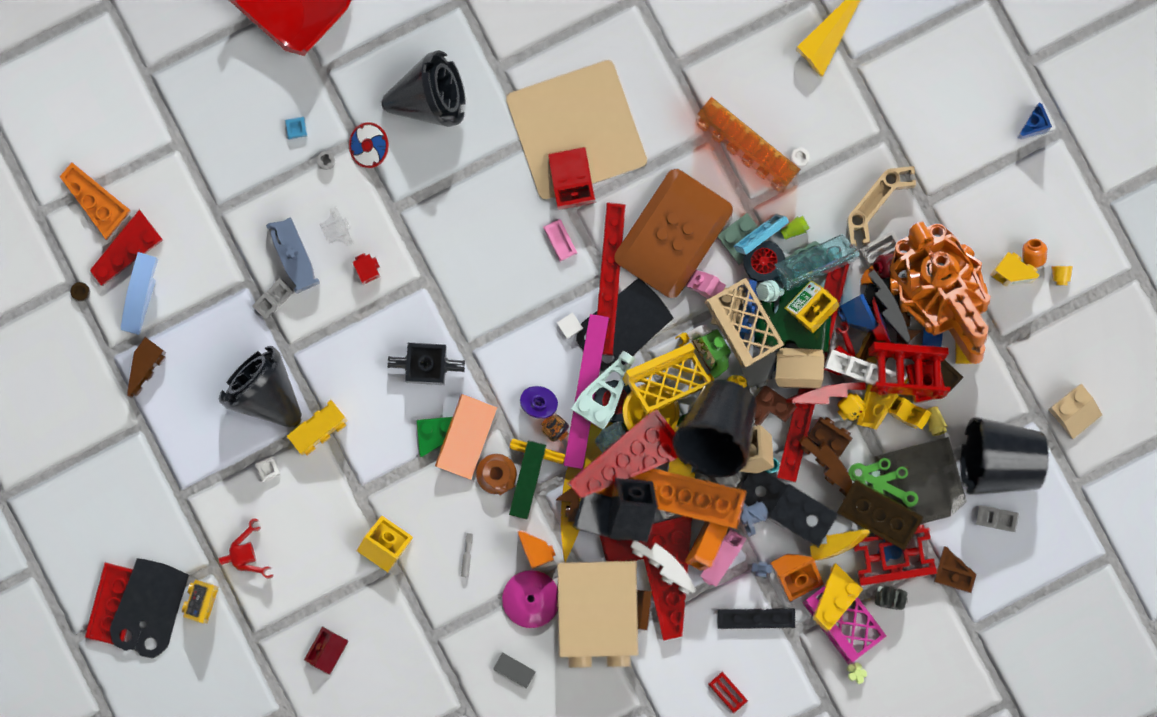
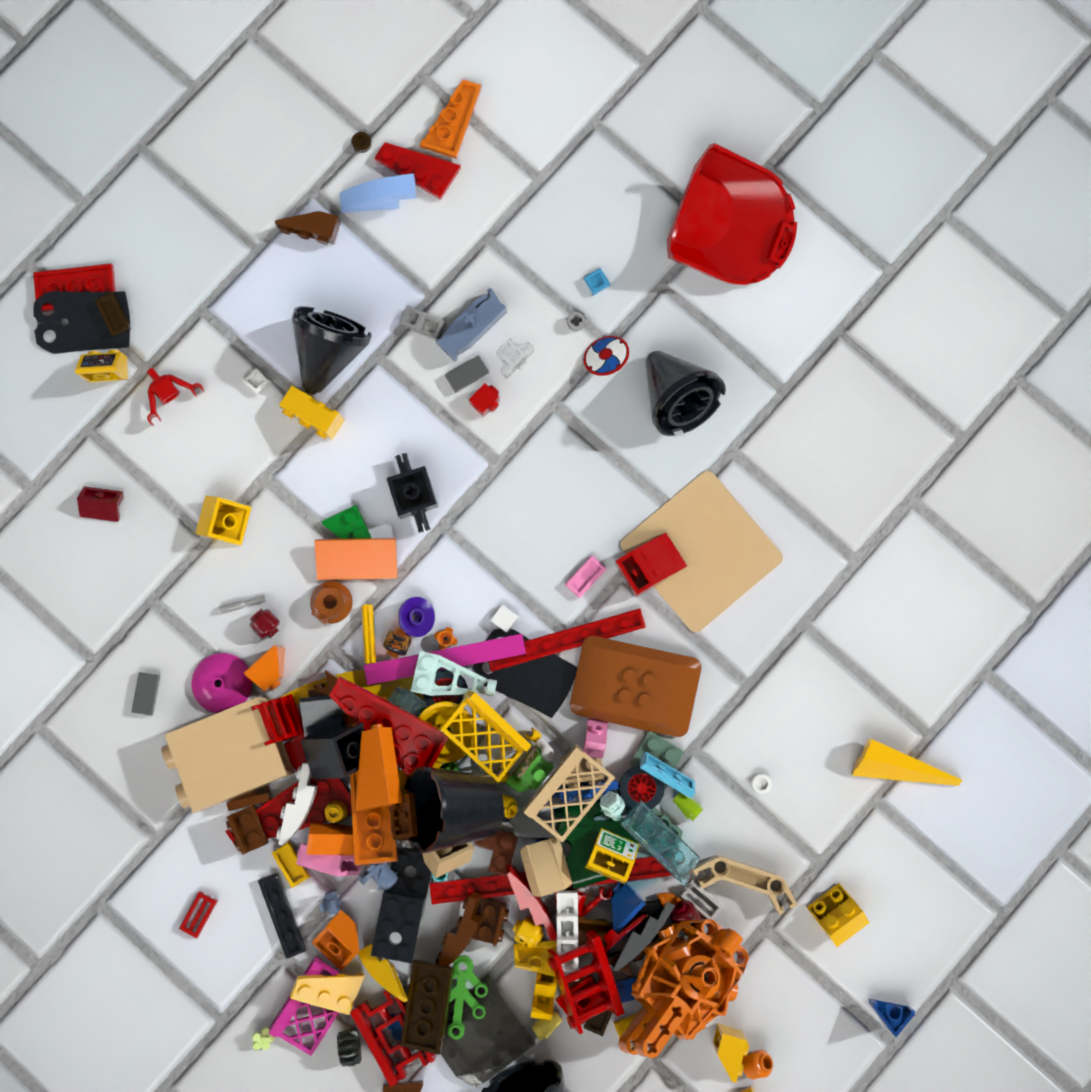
camera: 70 degrees right, 0 degrees up
(154, 576) = (112, 314): none -> dark brown tile
(335, 276) = (467, 374): none -> dark grey tile
(493, 539) = (264, 623): none -> dark red head
(527, 479) = (336, 635): dark green tile -> none
(571, 380) = (448, 632): none -> orange plate
(584, 551) = (284, 716): none -> red plate
(662, 477) = (378, 770): none -> orange slope
(670, 618) = (247, 830): none -> reddish brown bracket
(683, 536) = (336, 811): none -> yellow hat
(710, 470) = (404, 818): none -> reddish brown bracket
(715, 595) = (286, 859): none -> yellow tile
(747, 145) = (752, 726): clear orange brick -> none
(936, 135) = (838, 915): none -> yellow slope

